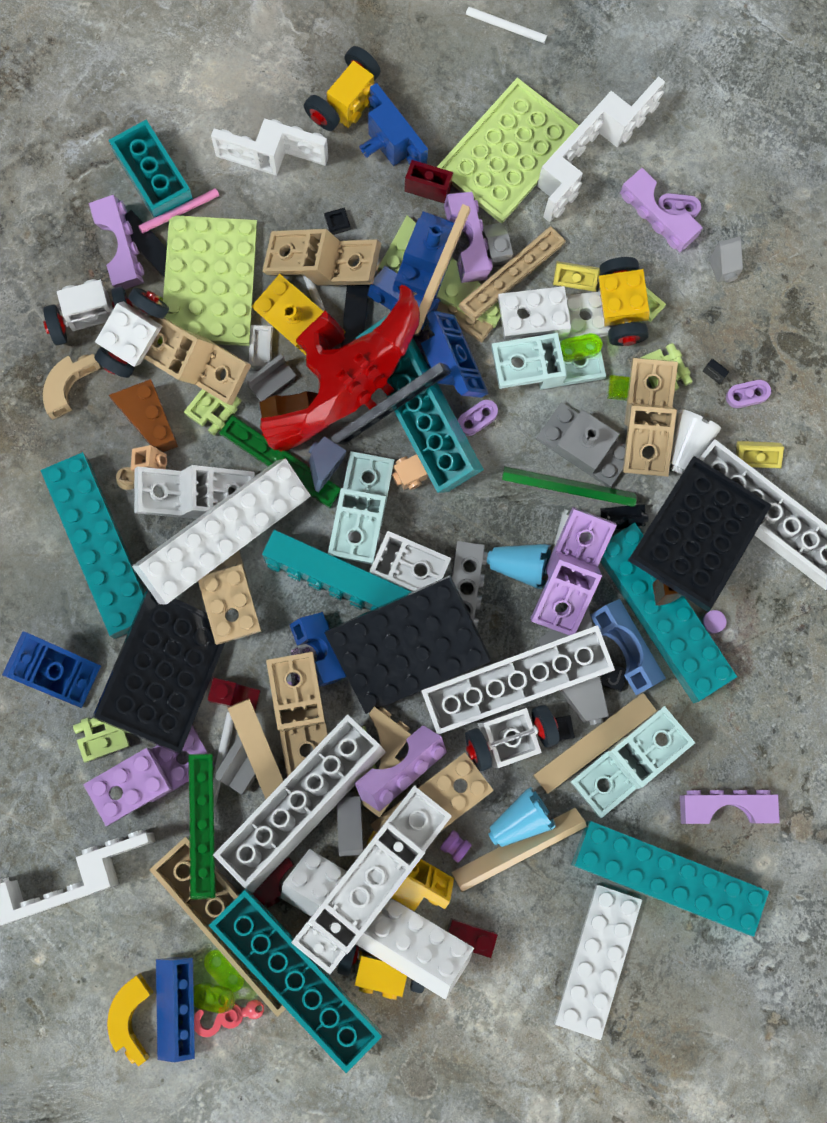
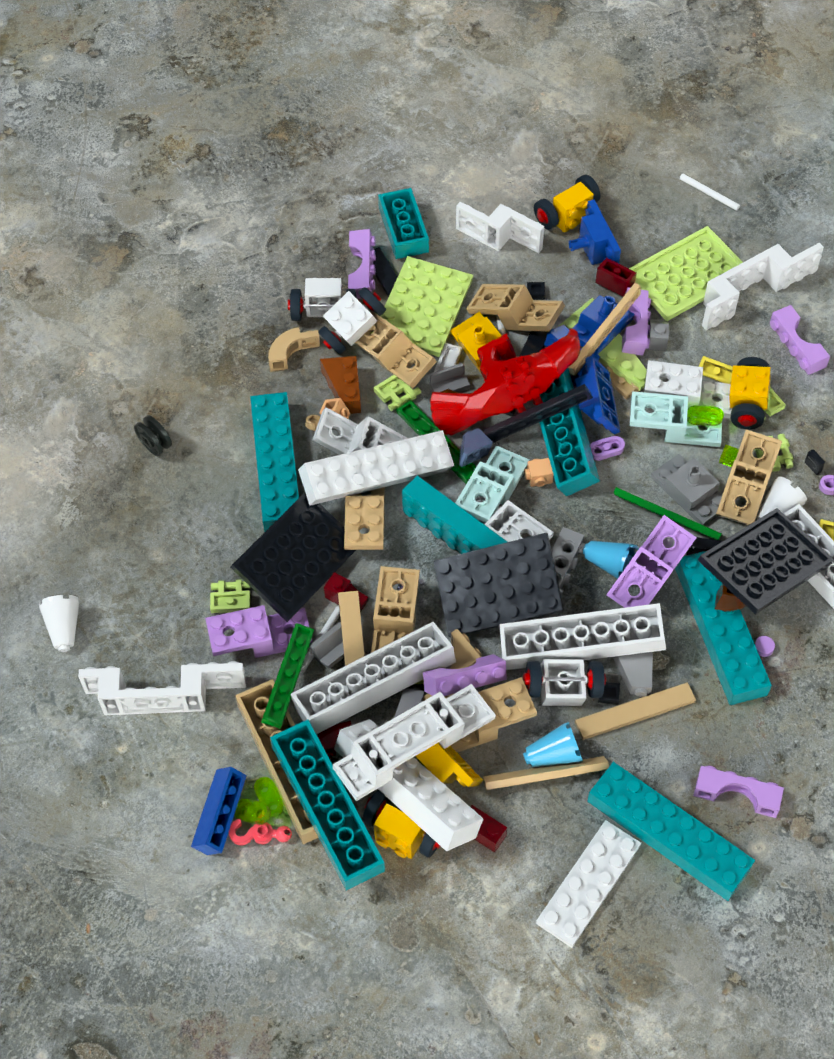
camera: 25 degrees right, 20 degrees down
(51, 669) = (209, 531): blue brick -> none
(120, 1019) = (177, 799): yellow arch -> none
(163, 218) = (421, 254): bright pink bar -> none
(311, 631) = (428, 589): blue arch -> none
(455, 846) = (492, 755): medium lavender wheel -> none
(512, 273) = (666, 353): tan tile -> none
(615, 679) = (665, 665): black tile -> none
(632, 762) = (662, 727): light aqua bracket -> none
(642, 668) = (691, 661): medium blue arch -> none
(679, 203) = (815, 337): lavender plate -> none

